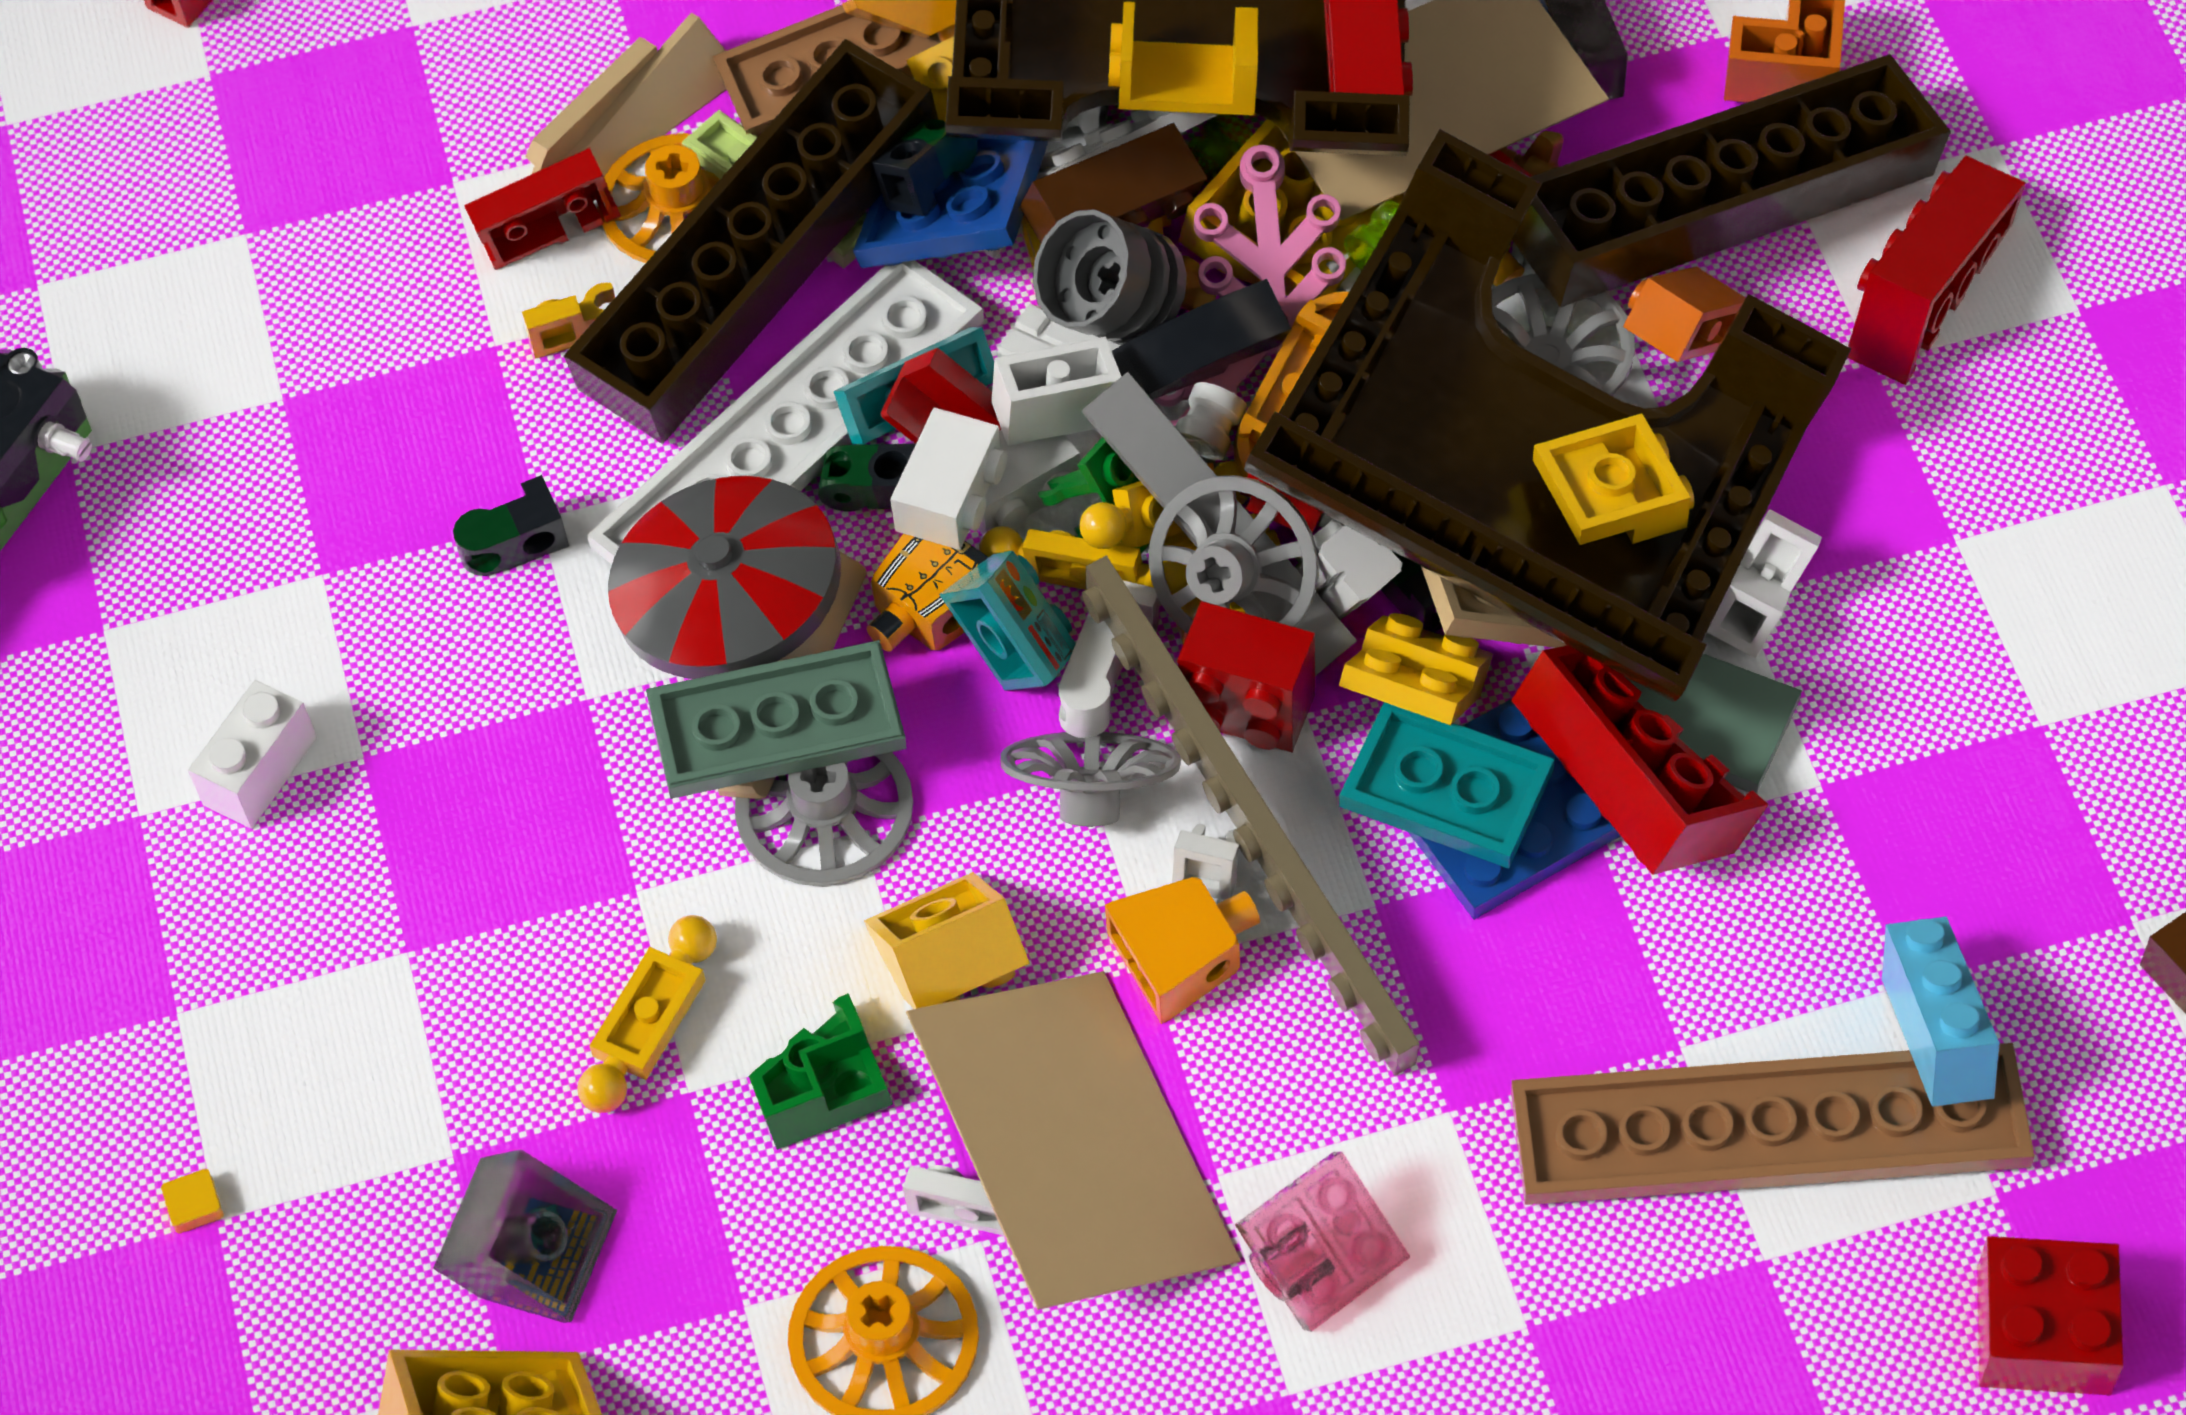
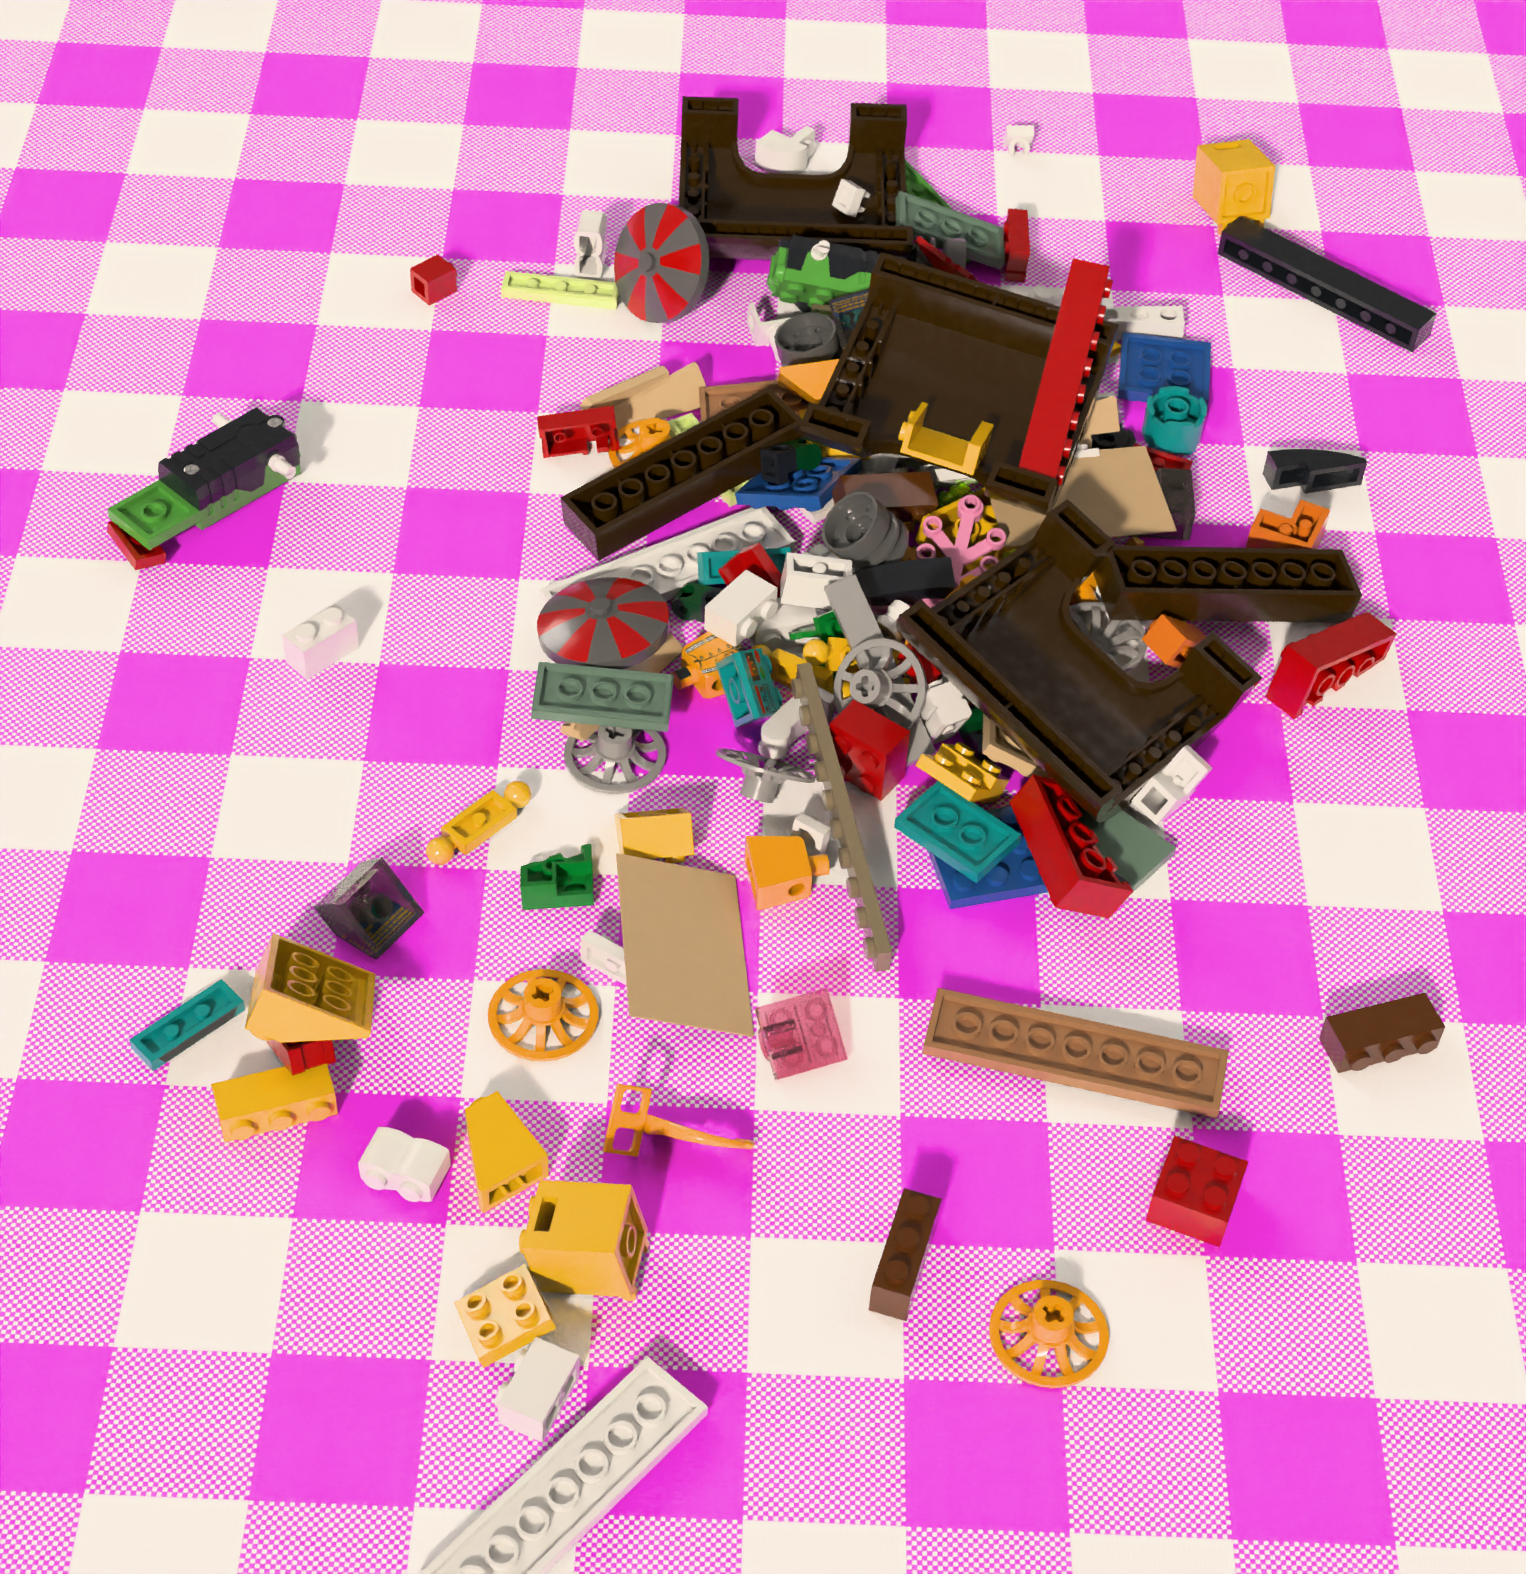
camera: 10 degrees right, 10 degrees down
(192, 1201) = (201, 843): yellow piece -> none
(511, 532) = (499, 578): leg -> none
(560, 323) = (562, 484): yellow plate -> none
(1615, 481) = (1106, 707): yellow plate -> none
(1940, 1011) = (1191, 1018): medium azure brick -> none

